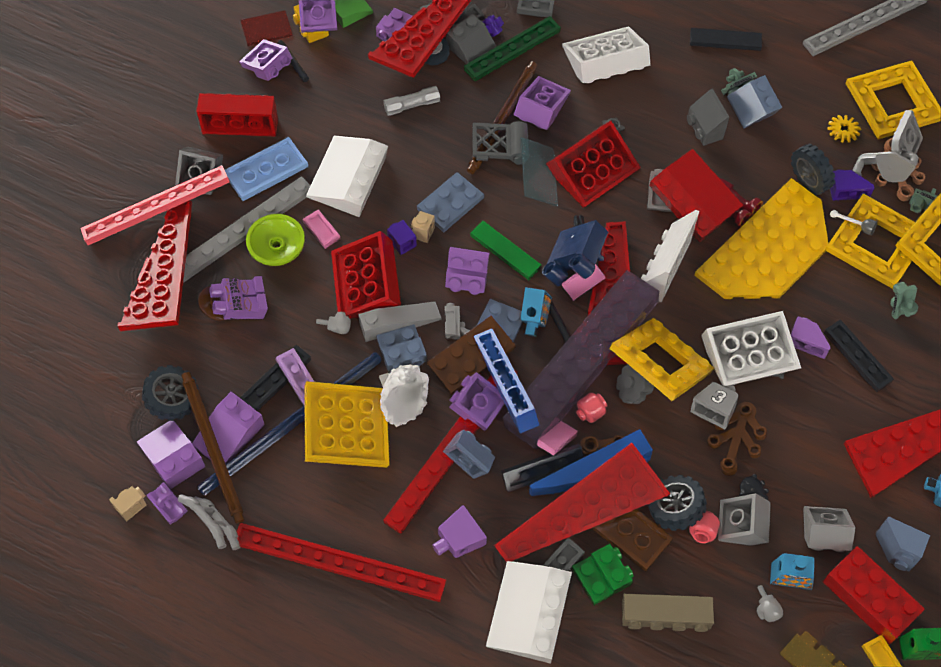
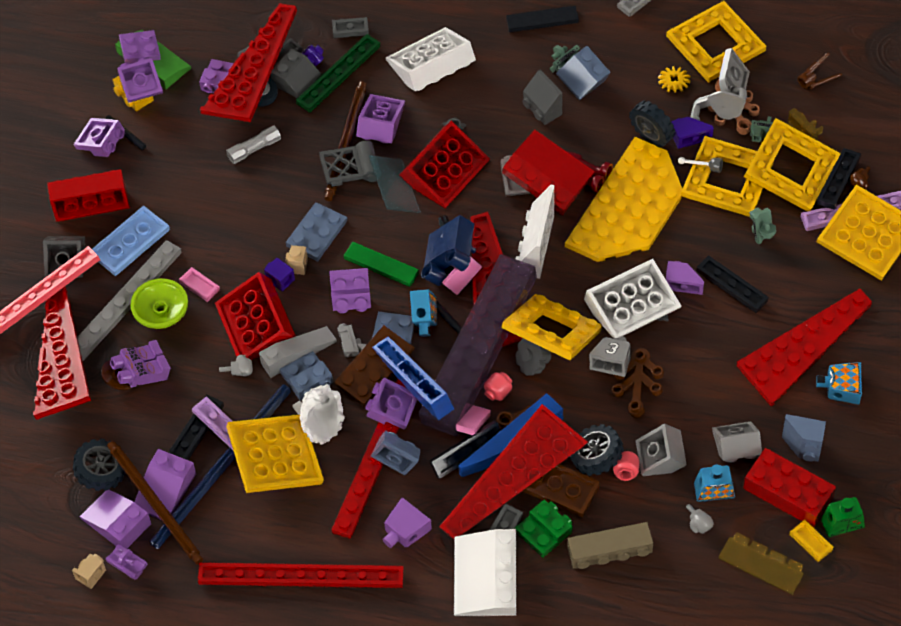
camera: 10 degrees left, 5 degrees down
(204, 509) = (188, 573): light grey piece -> none
(266, 27) = (89, 105): clear red piece -> none
(348, 173) = (211, 226): white slope -> none
(752, 485) = (660, 418): black piece -> none

